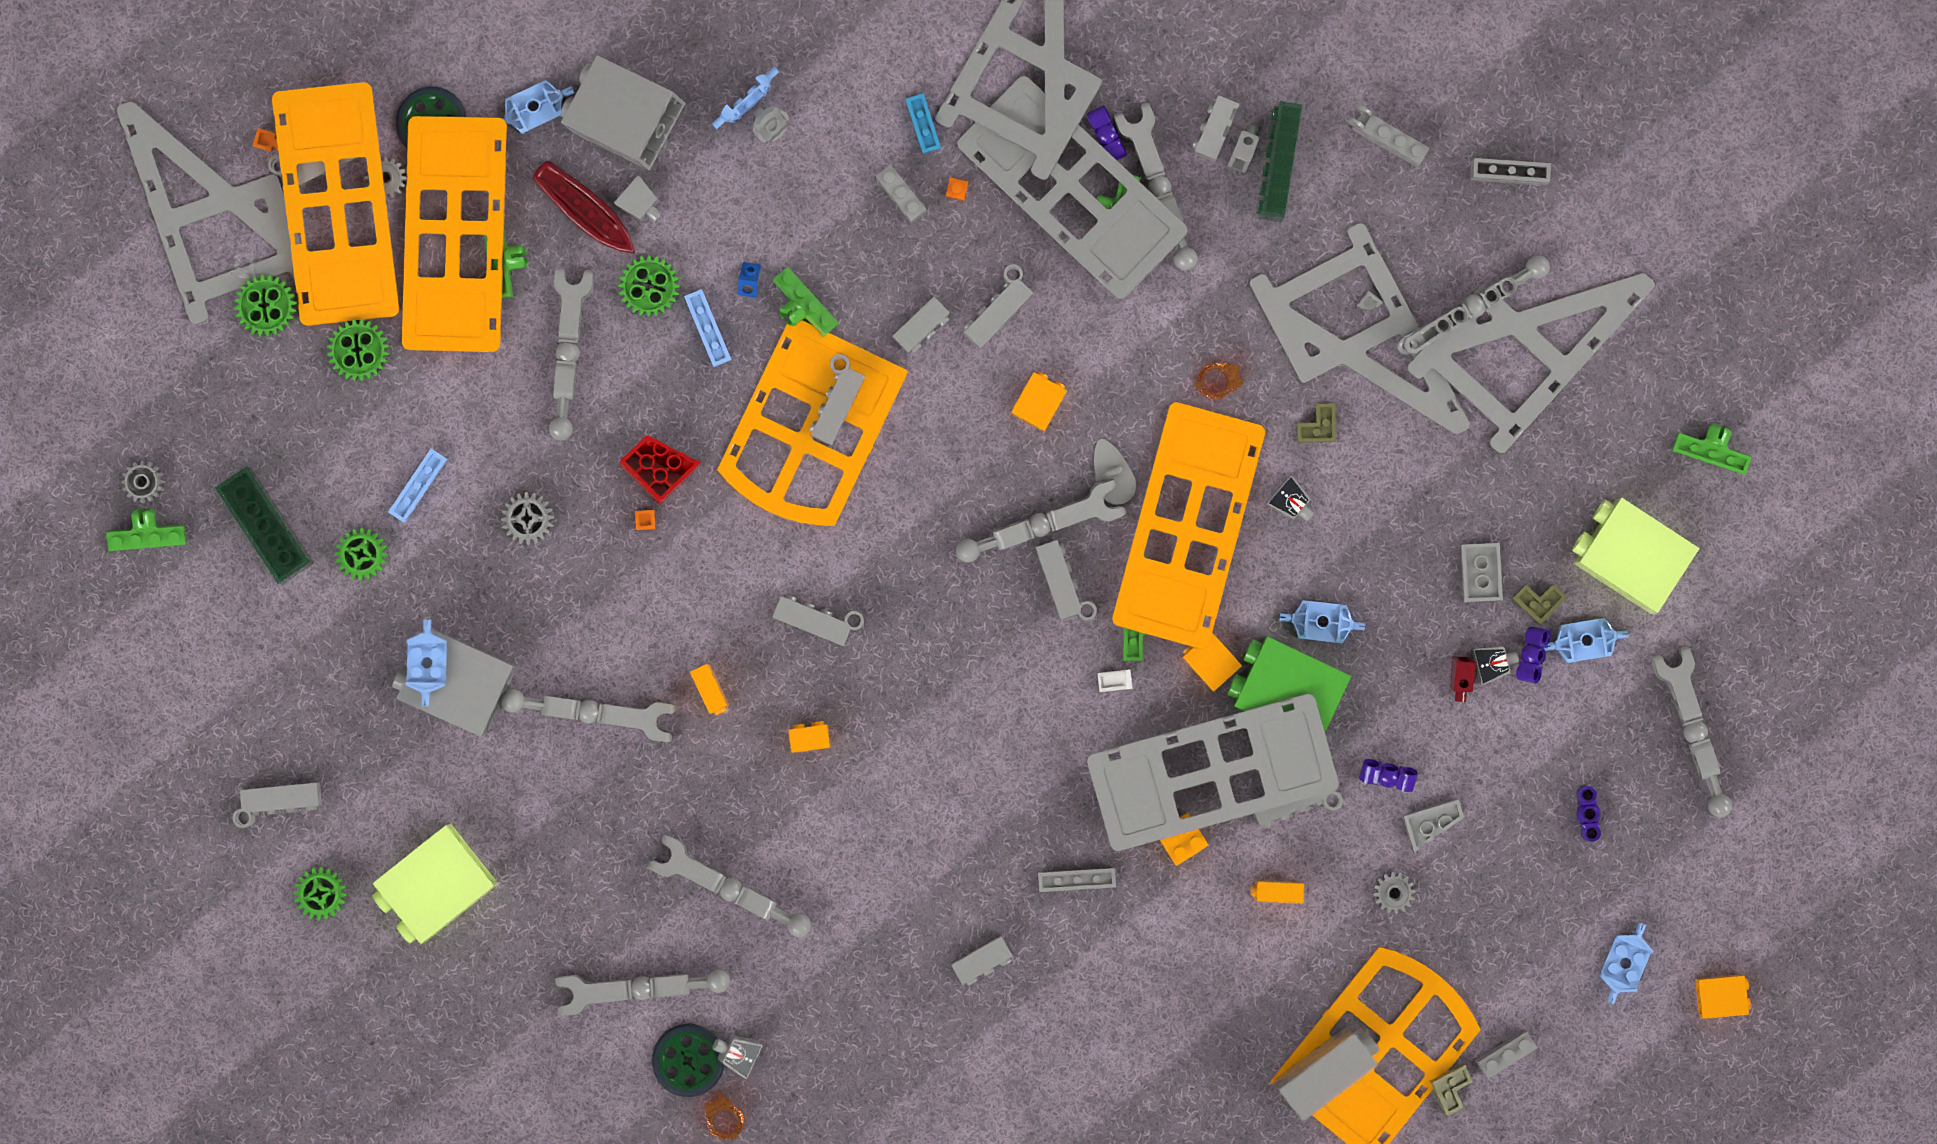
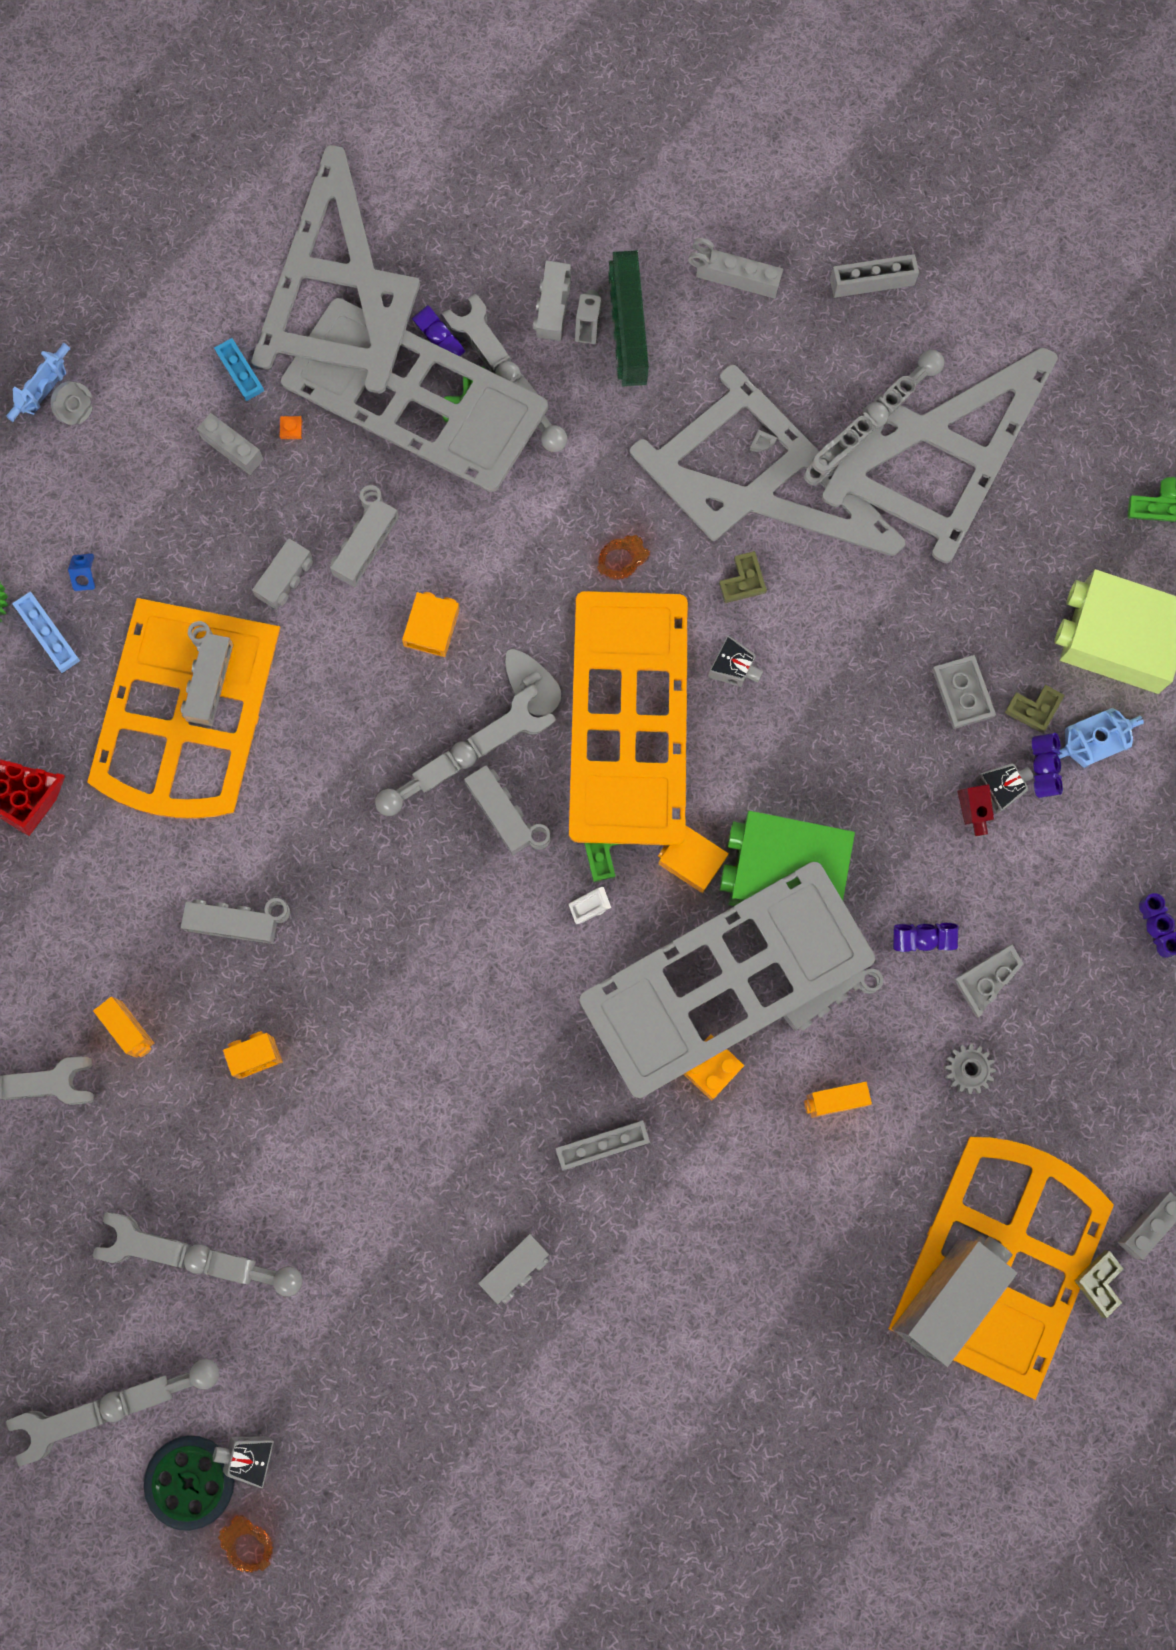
camera: 10 degrees left, 10 degrees down
(645, 520) = (15, 856): orange plate -> none
(802, 304) = (146, 582): bright green plate -> none
(1306, 621) = (789, 795): light blue plate -> none

